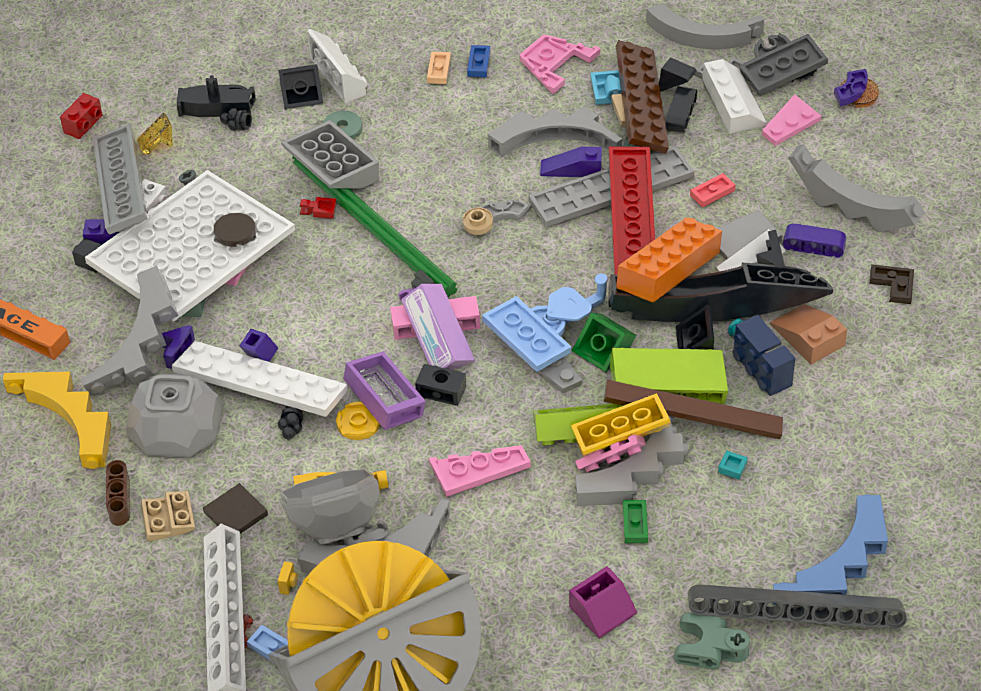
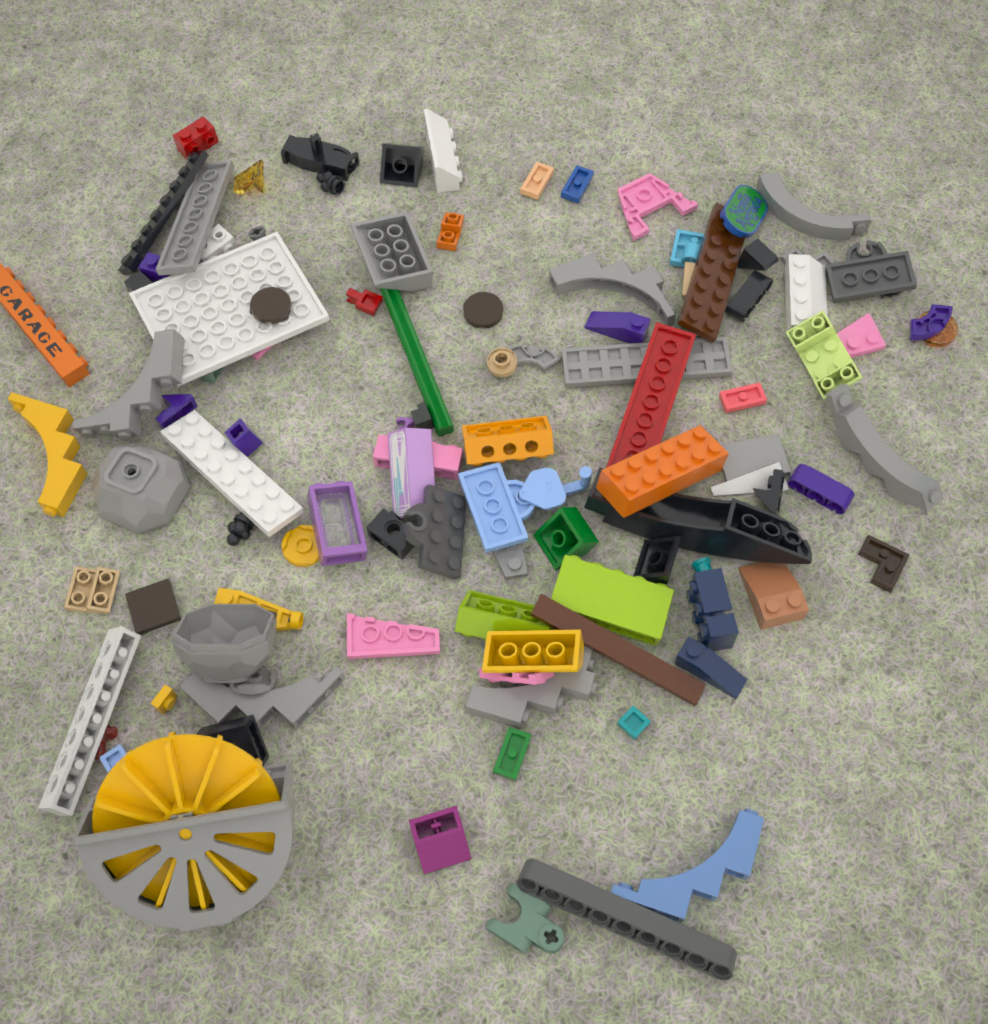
camera: 20 degrees right, 15 degrees up
(80, 186) = (160, 216): none -> black plate
(117, 492) = (56, 542): reddish brown beam -> none
(347, 118) = (428, 209): sand green tile -> none
(374, 130) = (450, 231): none -> orange slope
(437, 186) = (483, 310): none -> dark brown tile
(482, 363) = (438, 531): none -> dark grey plate
(515, 277) = (523, 436): none -> light orange brick
(646, 41) = (744, 211): none -> tile
(768, 133) = (823, 353): none -> yellowish green slope
(778, 401) = (710, 667): none -> dark blue slope

